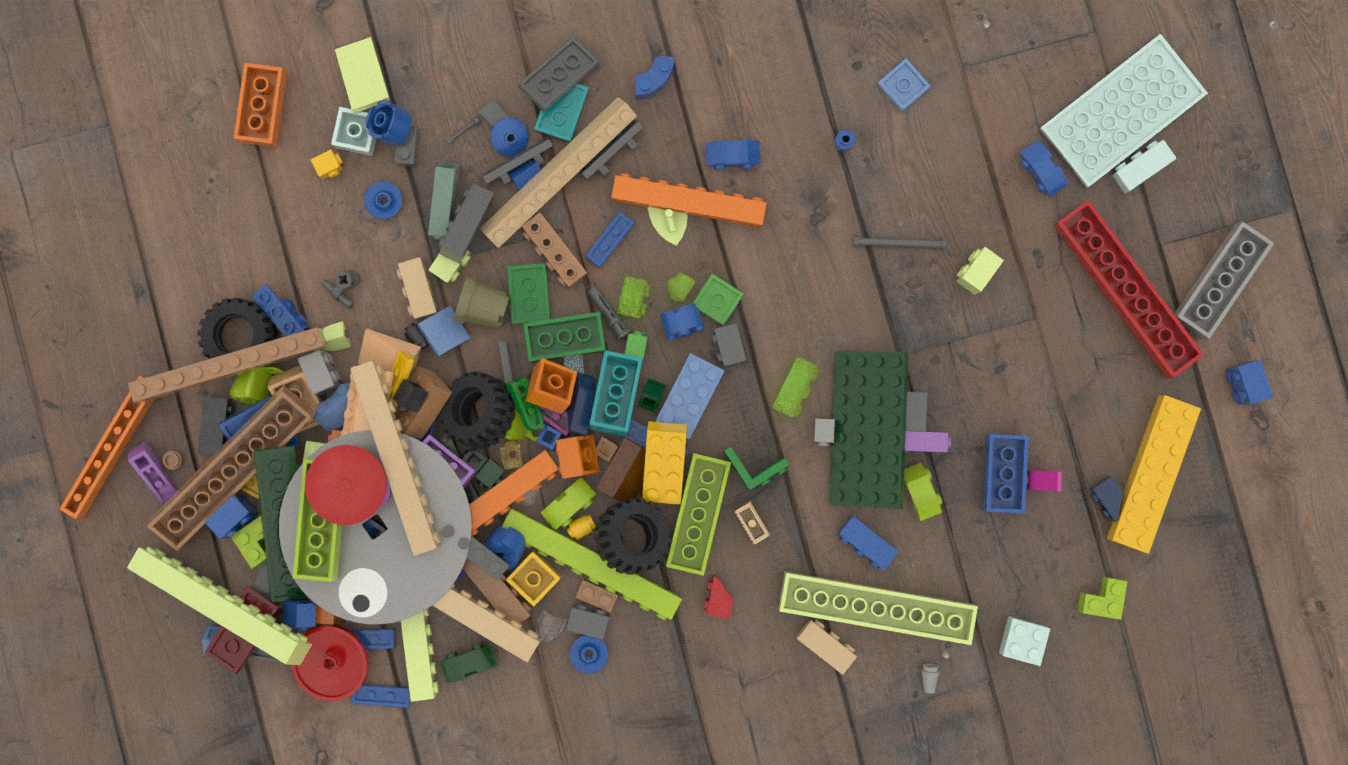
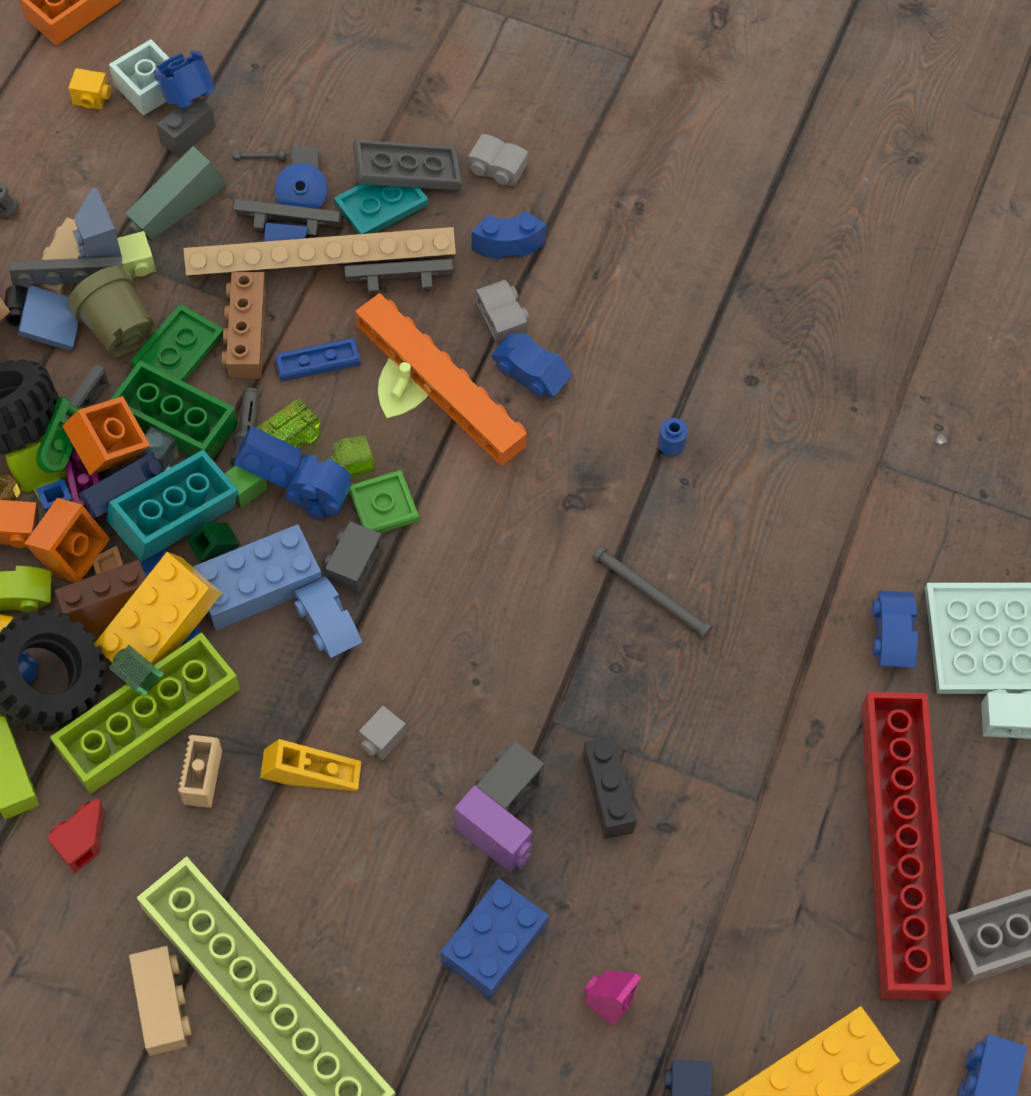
camera: 35 degrees right, 25 degrees down
(362, 75) = (203, 30): yellowish green tile -> none
(376, 193) = (112, 148): blue dish -> none
(428, 307) = (58, 270): none -> dark grey plate
(433, 267) = (95, 230): none -> sand blue slope
(466, 224) = (174, 228): dark grey brick -> none
(606, 28) = (497, 160): none -> light grey brick
(642, 327) = (268, 457): none -> blue brick
(682, 502) = (135, 670): none -> clear green brick
(688, 130) = (501, 310): none -> light grey brick
(745, 390) = (324, 612): none -> medium blue brick
(762, 477) = (260, 723): green bracket -> none
(795, 387) = (390, 658): clear neon green brick -> none
(802, 477) = (309, 767): none -> yellow slope
(867, 543) = (321, 909): blue brick -> none
(869, 429) = (436, 765): dark green plate -> none
(903, 85) = (791, 433): medium blue tile -> none
(921, 491) = (443, 896): lime brick -> none
(960, 372) = (609, 787): none -> black brick
(962, 493) = (494, 938): none -> blue brick
(979, 270) = (725, 682): yellowish green brick -> none
(1005, 473) = (569, 952): blue brick -> none

